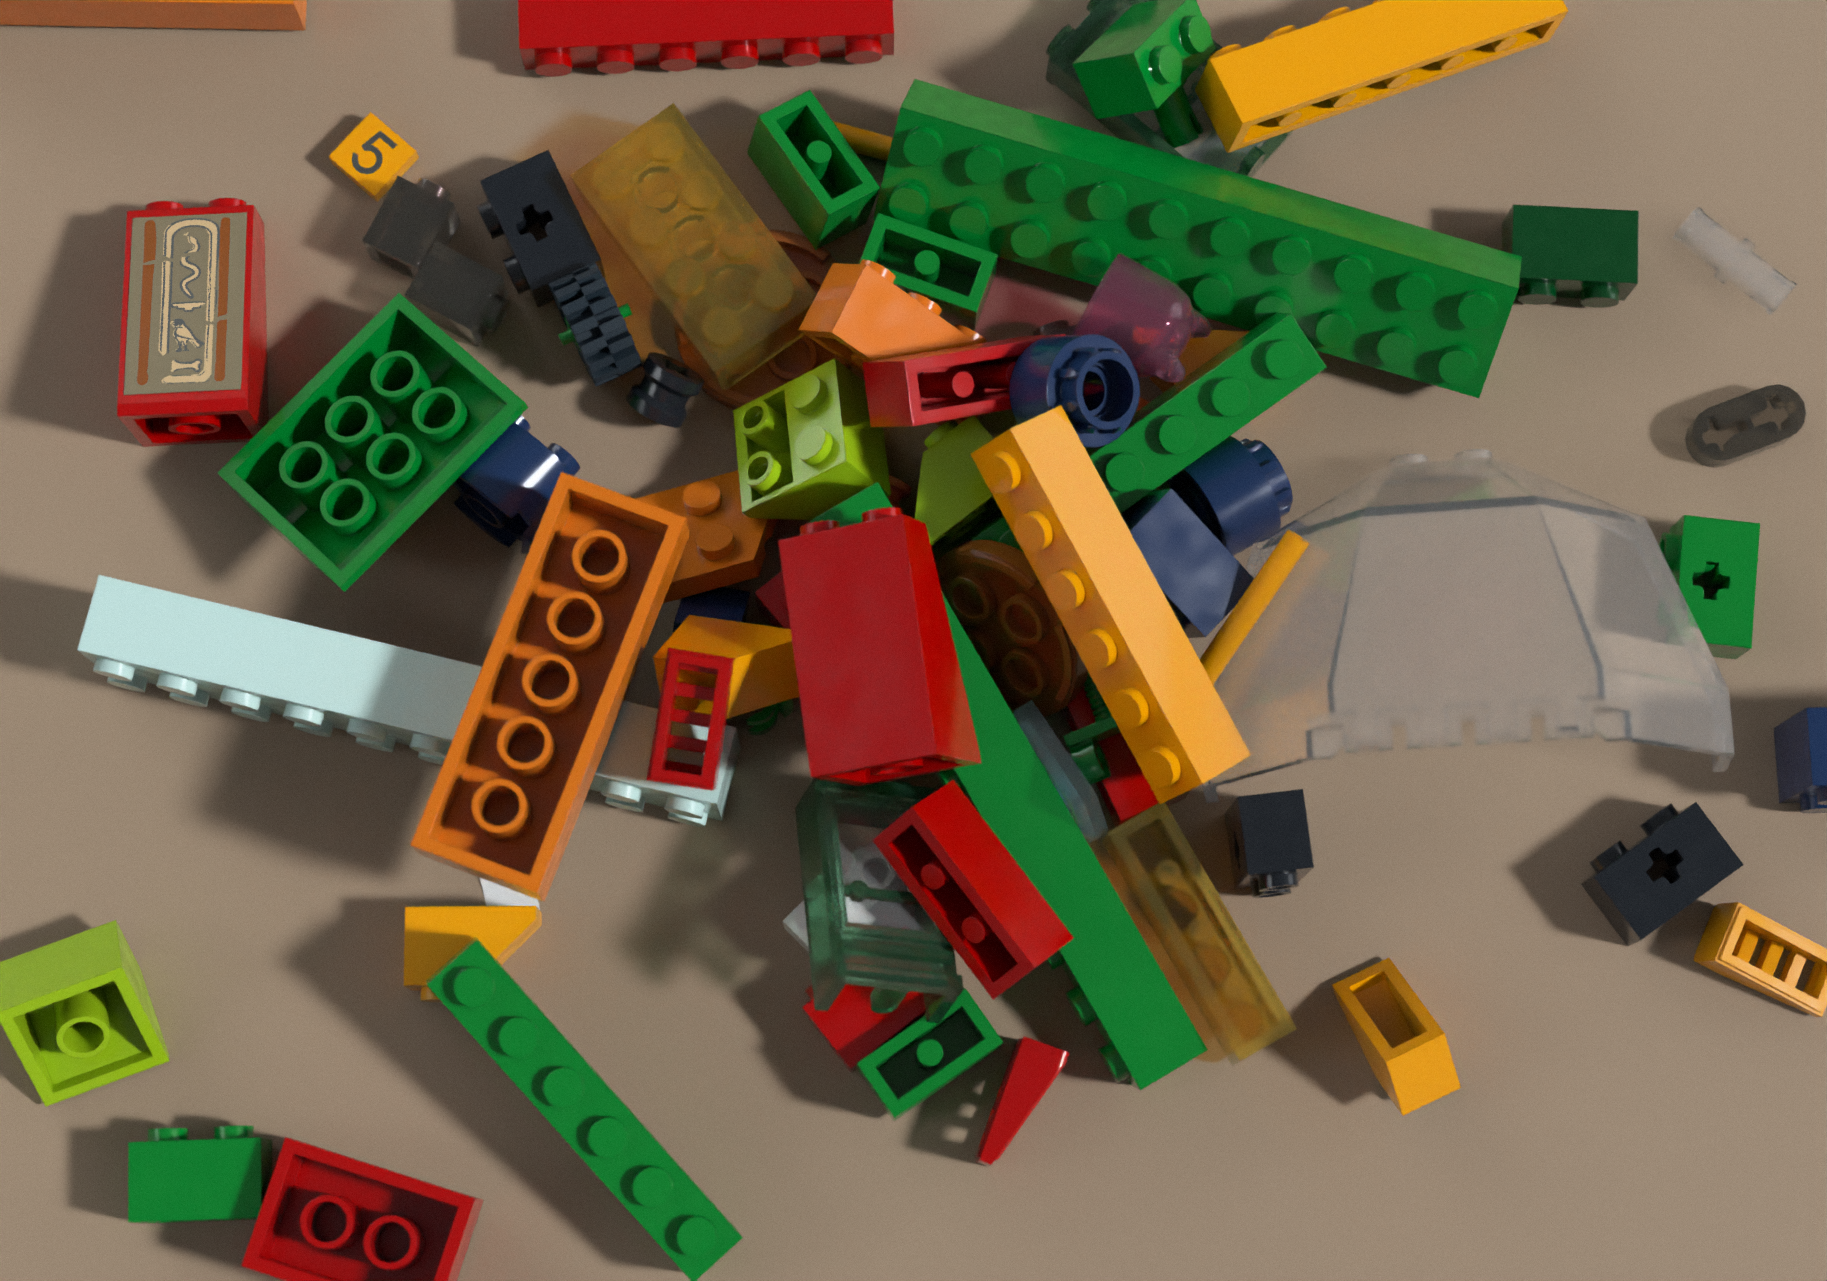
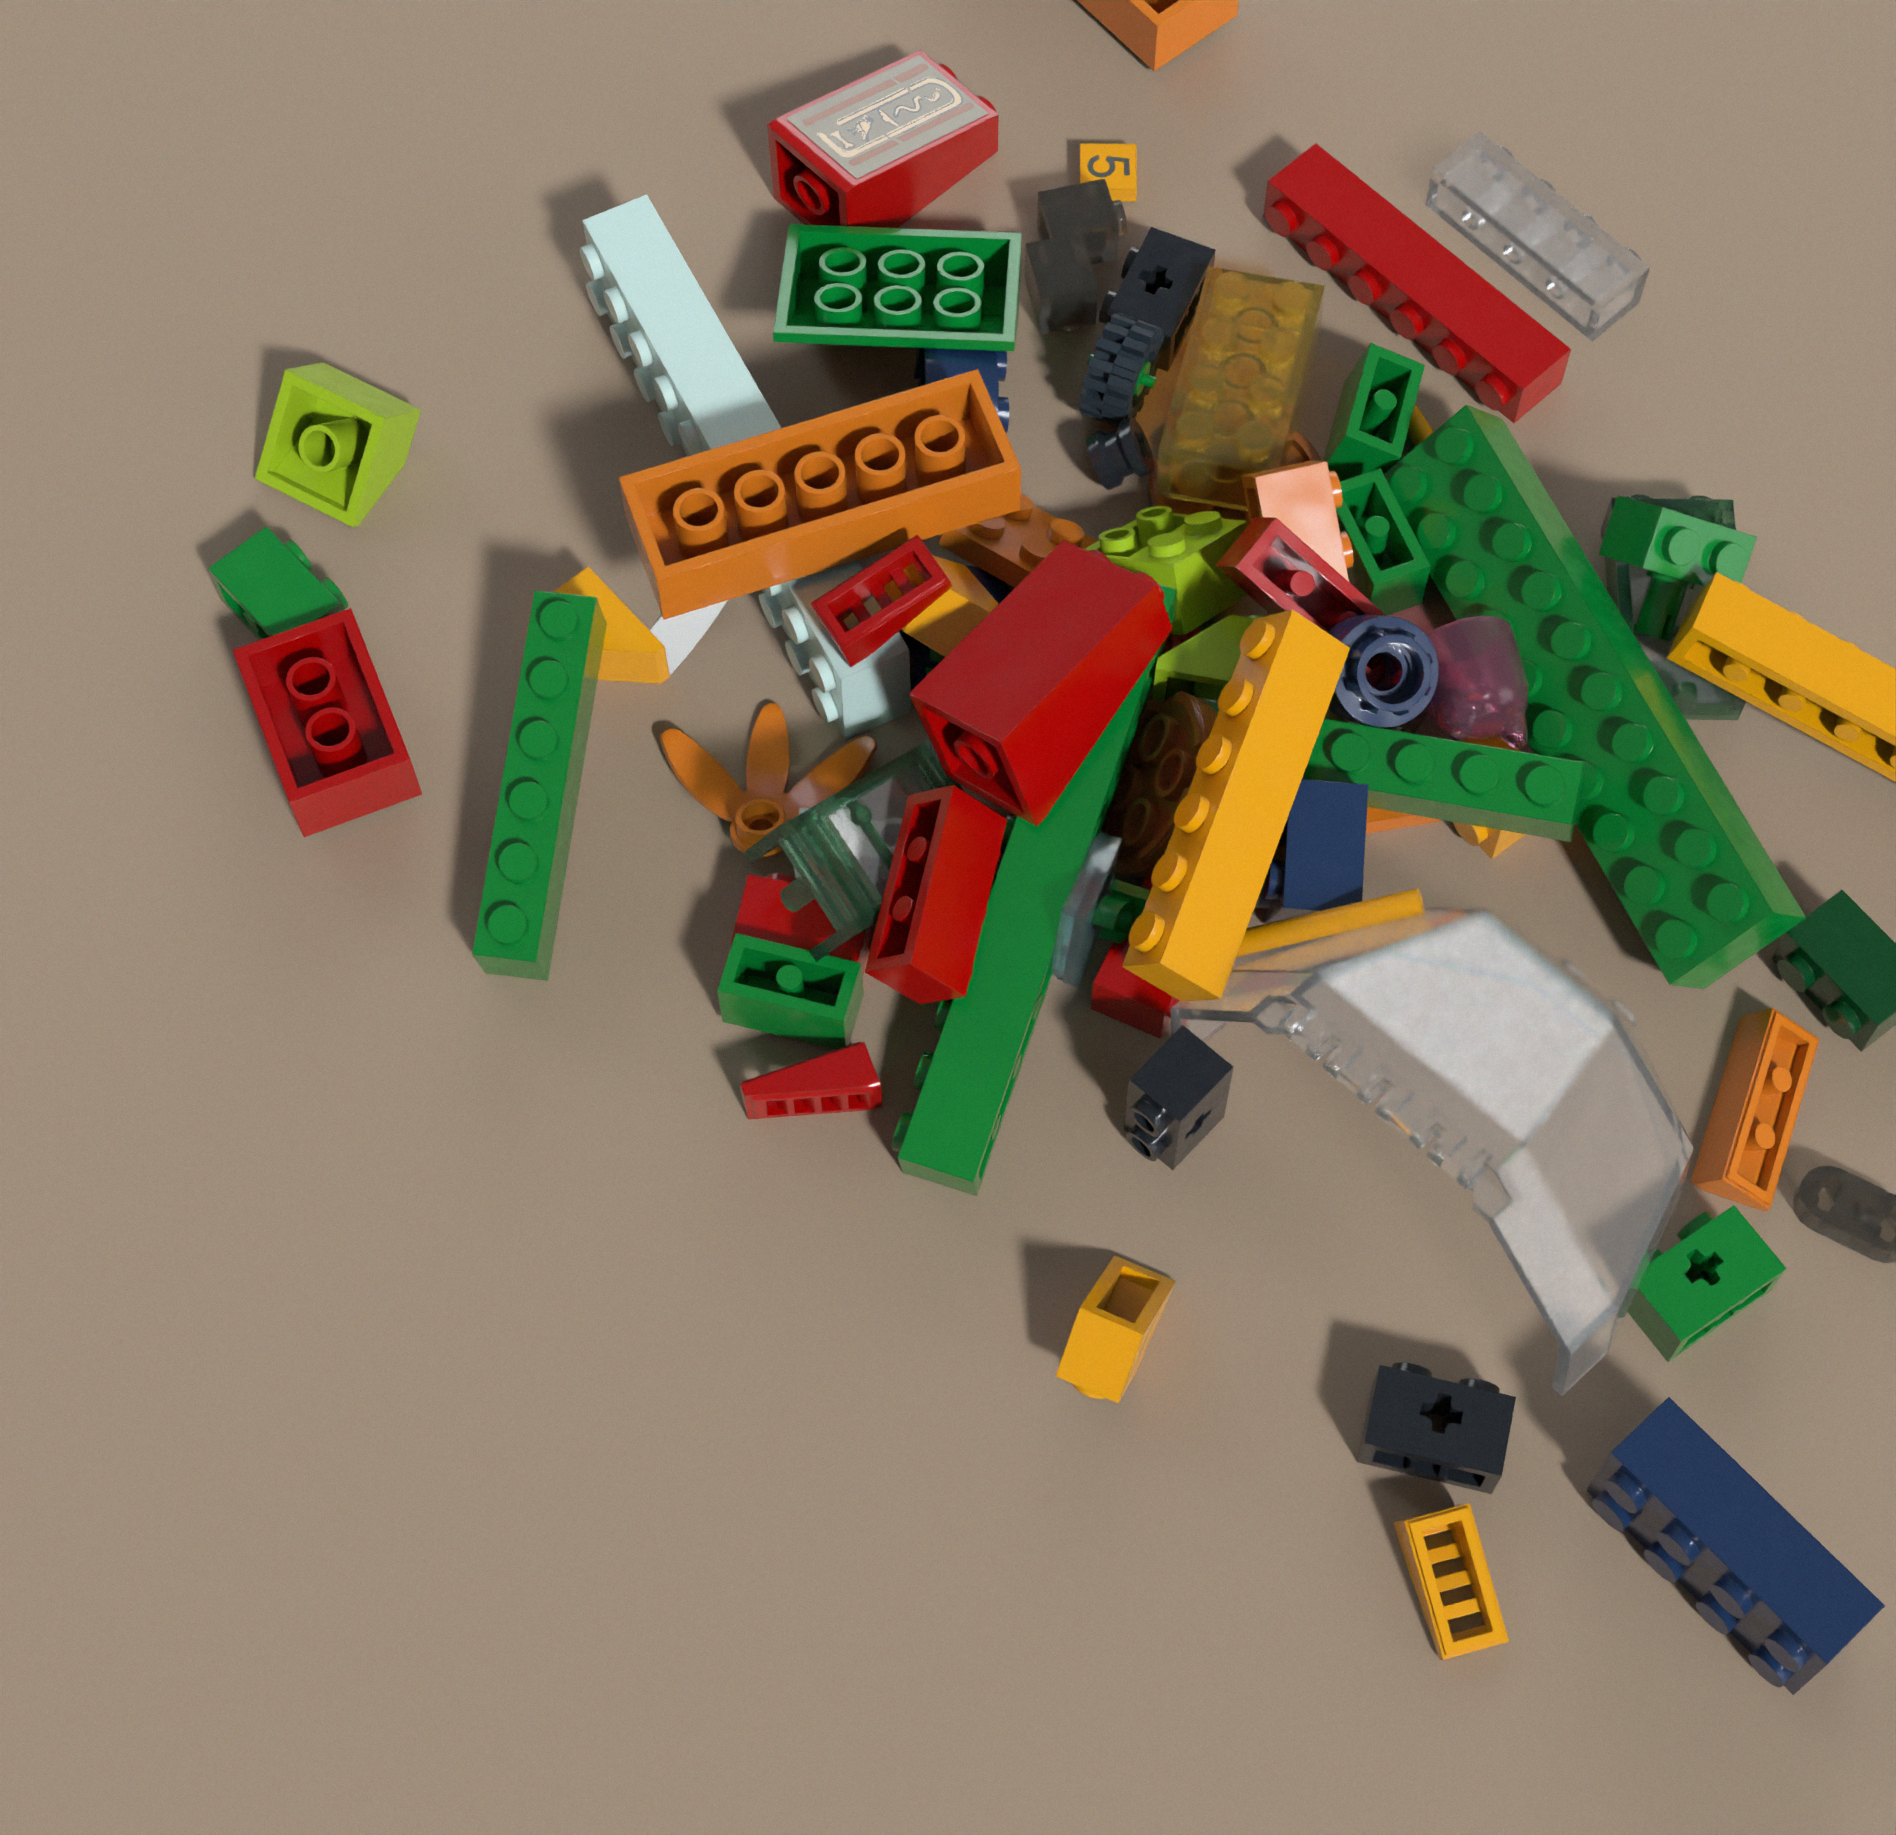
camera: 55 degrees right, 15 degrees down
(728, 933) = (767, 774): none -> orange plant
(1198, 933) = (1057, 1110): clear yellow brick -> none
(1236, 492) = (1422, 856): dark blue piece -> none
(1606, 419) = (1755, 1109): none -> orange slope

